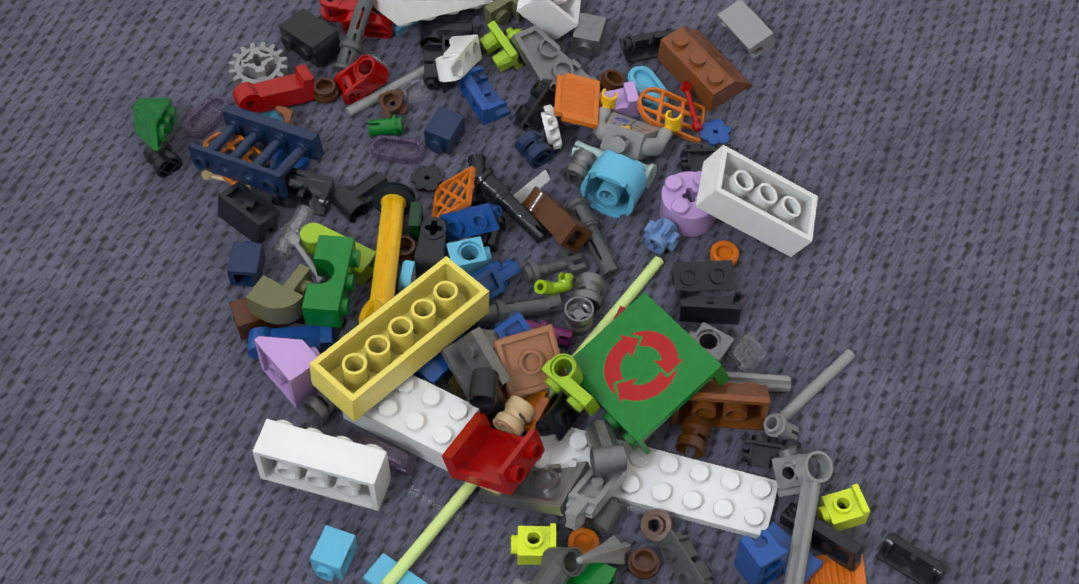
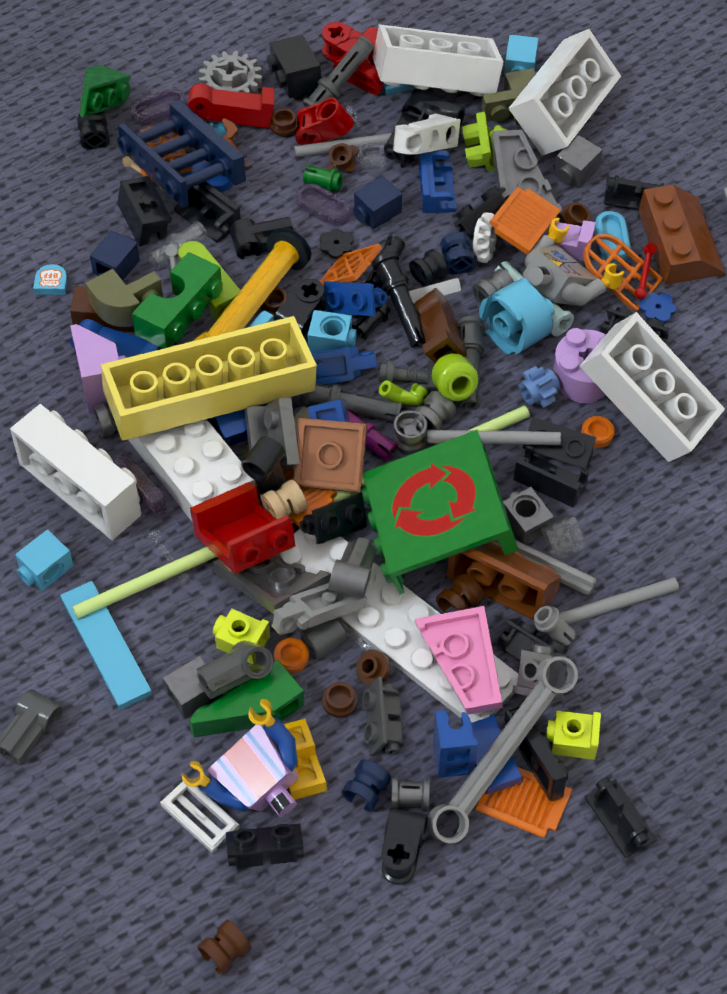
camera: 25 degrees right, 0 degrees up
(198, 306) = (50, 280): none -> medium azure tile
(415, 220) = (301, 271): dark green tile -> none
(517, 170) = (428, 268): none -> black wheel
(569, 384) = (353, 489): lime plate -> none
(593, 254) = (455, 377): none -> lime head
(608, 552) = (309, 672): light grey piece -> none
(652, 292) = (500, 437): none -> light grey bar
(729, 483) = (465, 655): none -> bright pink wing

